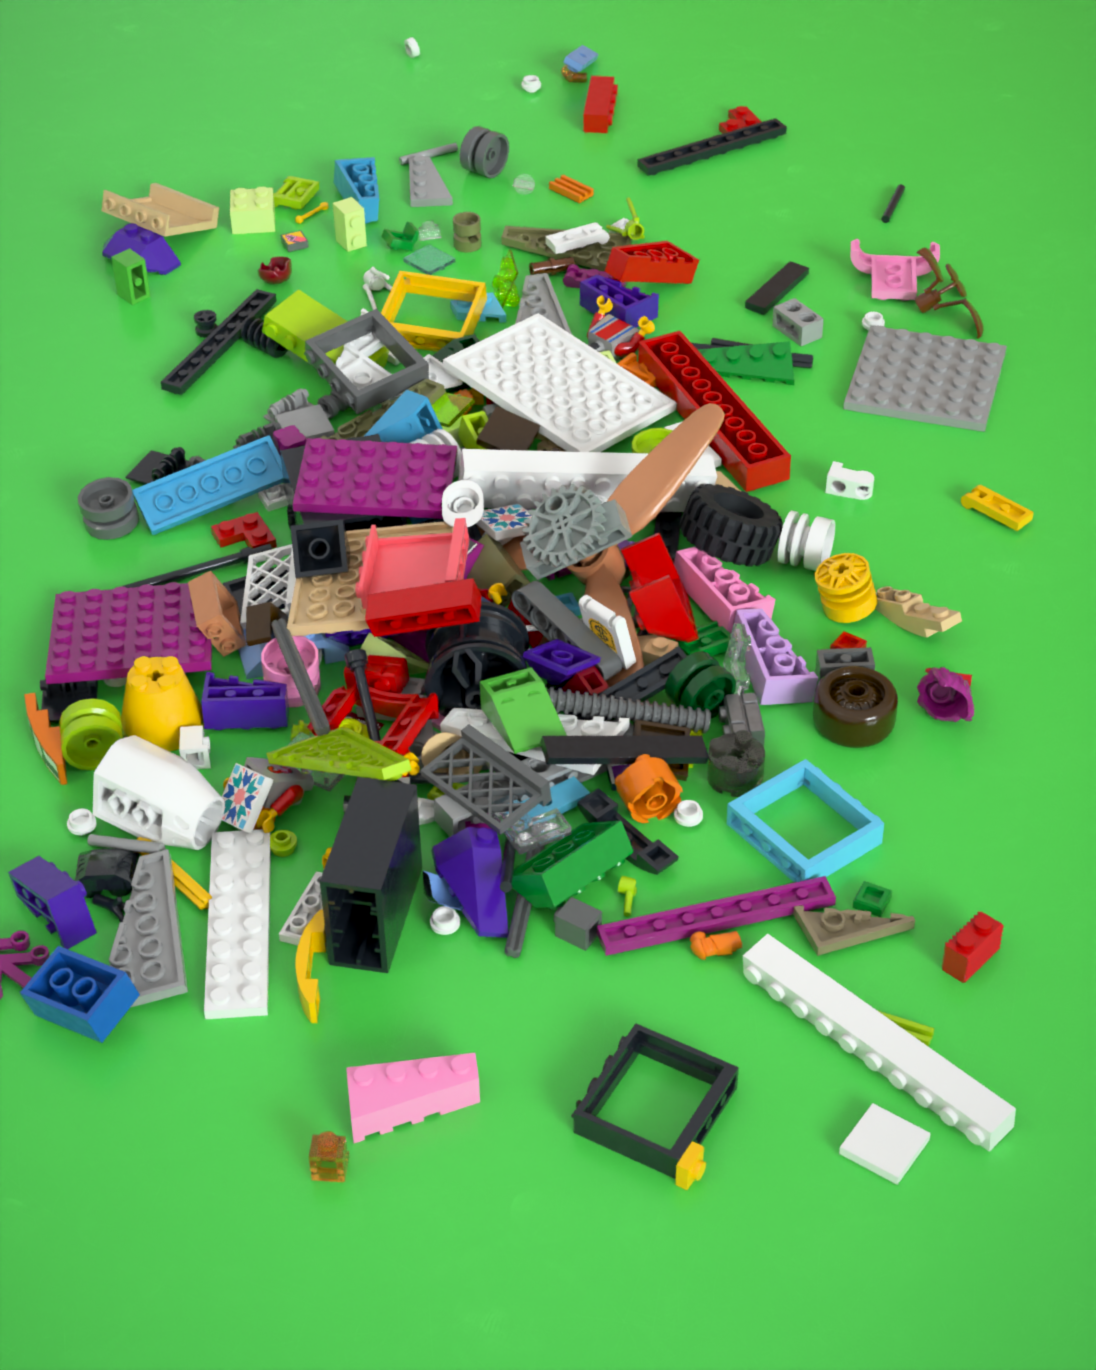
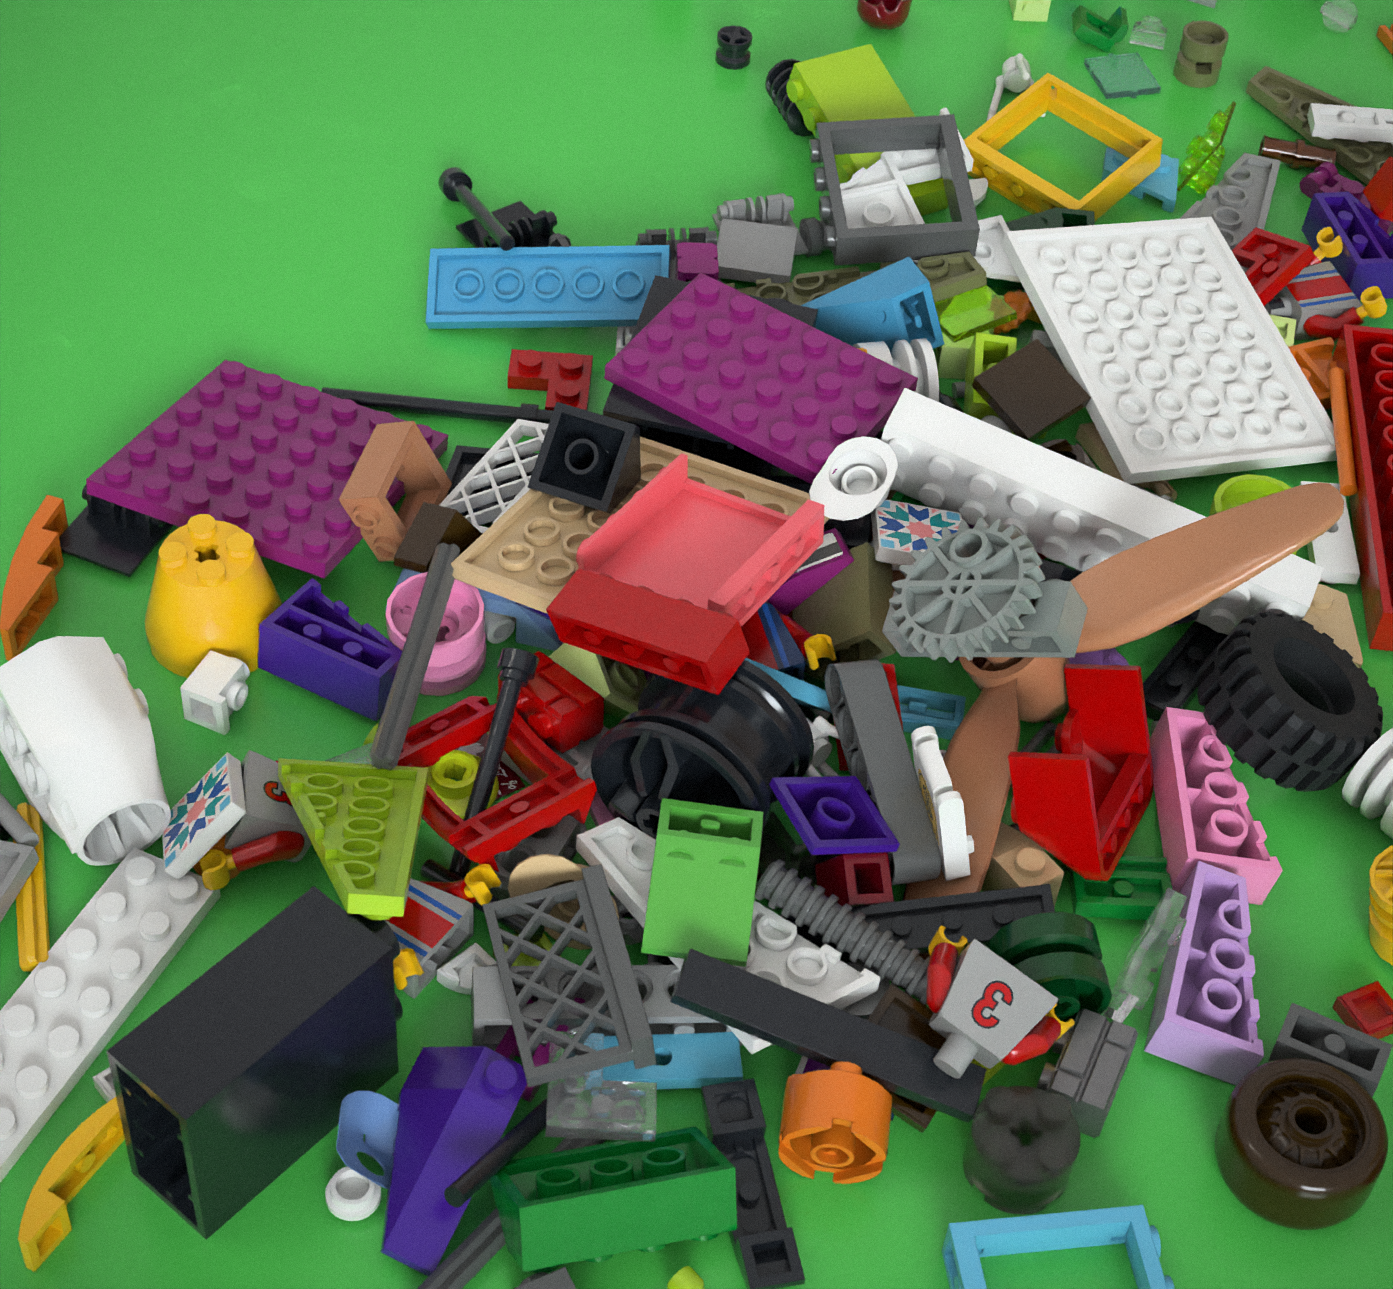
camera: 25 degrees right, 5 degrees up
(88, 732) = (80, 595): lime wheel -> none
(108, 508) = (386, 262): dark grey wheel -> none
(110, 455) = (458, 187): none -> piece
(216, 343) = (719, 83): black plate -> none
(283, 843) = (226, 926): lime plate -> none
(582, 323) = (1271, 261): none -> red plate
(667, 391) = (1342, 432): none -> orange bar
(687, 705) = (986, 1008): none -> light grey torso
(688, 813) = (883, 1200): white plate -> none

